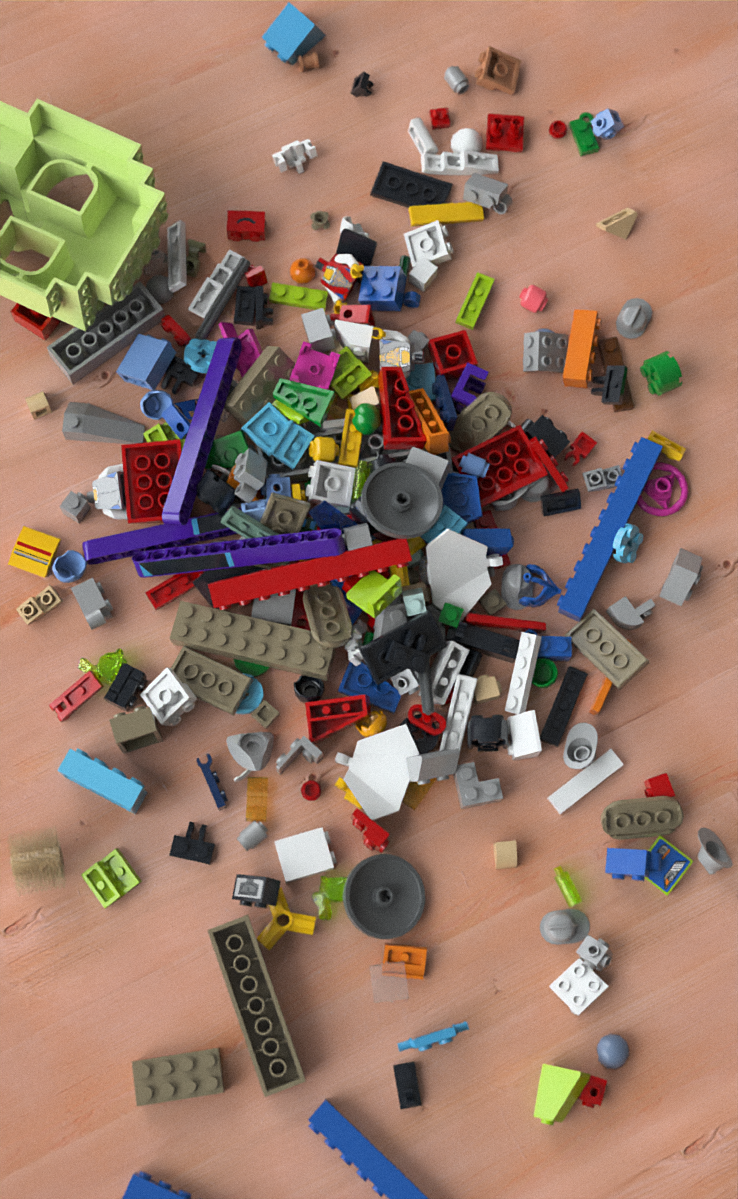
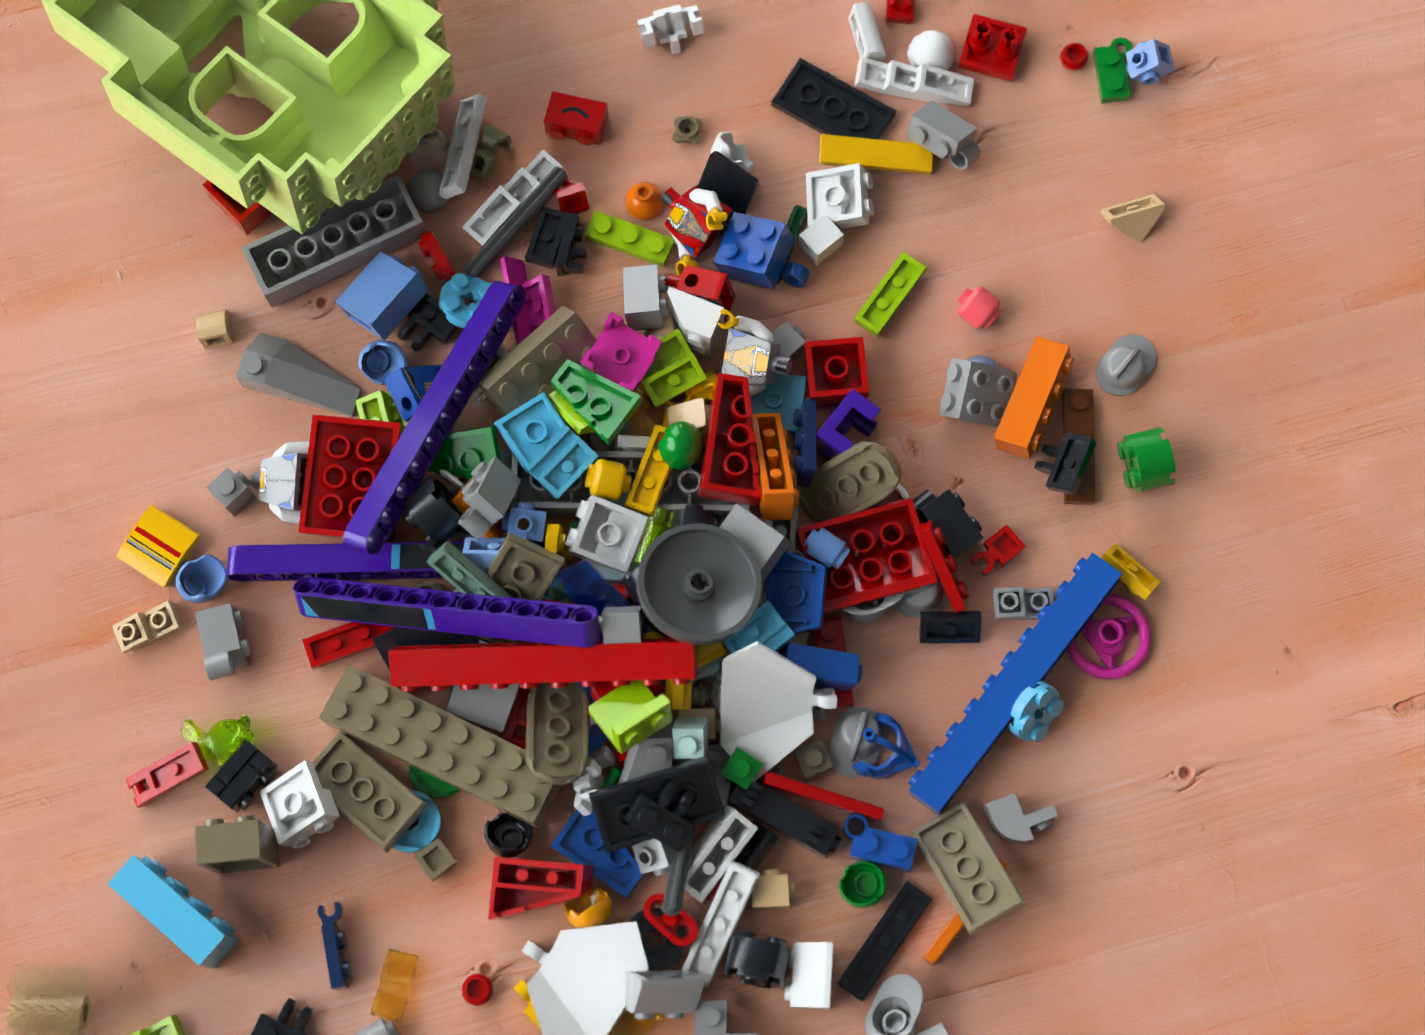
camera: 20 degrees right, 0 degrees up
(251, 751) = (401, 911): light grey hat -> none
(309, 750) = (485, 932): light grey bracket -> none
(523, 673) = (831, 880): white plate -> none
(683, 574) = (1109, 779): light grey brick -> none

